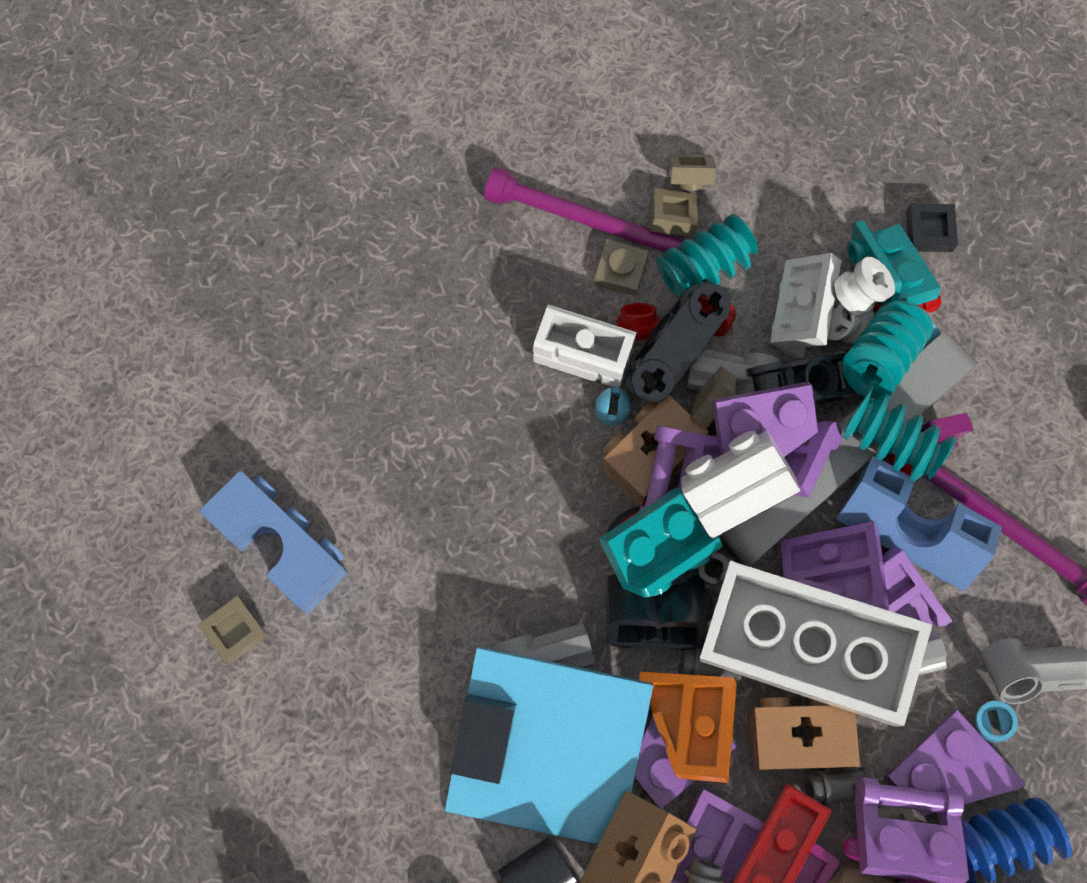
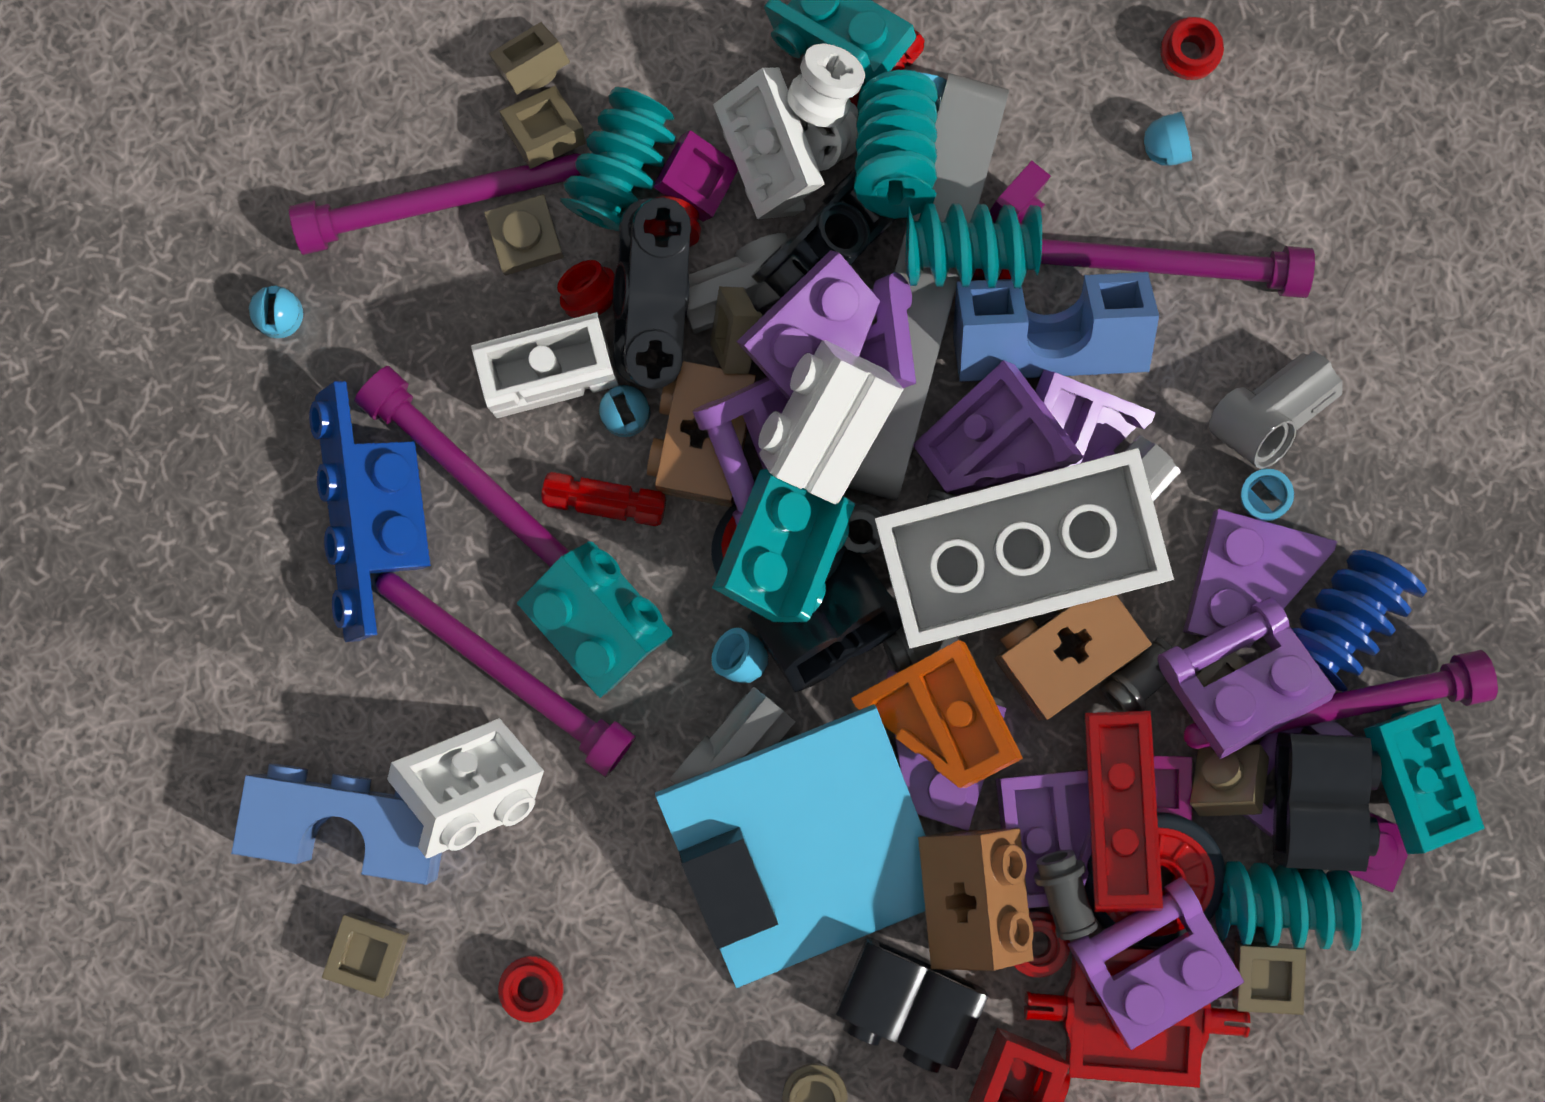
camera: 35 degrees left, 10 degrees up
(302, 718) = (513, 1000): none -> red plate
(365, 566) = (467, 786): none -> white bracket
(423, 366) = (371, 510): none -> blue bracket
(451, 223) = (285, 311): none -> medium azure hinge
(464, 595) = (600, 741): none -> magenta piece
(476, 309) = (387, 398): none -> magenta piece
(512, 517) = (594, 617): none -> teal bracket
(565, 450) = (603, 499): none -> red axle
(586, 600) = (739, 656): none -> medium azure hinge
(750, 295) = (697, 174): none -> magenta plate
(1063, 458) = (1168, 140): none -> medium azure hinge

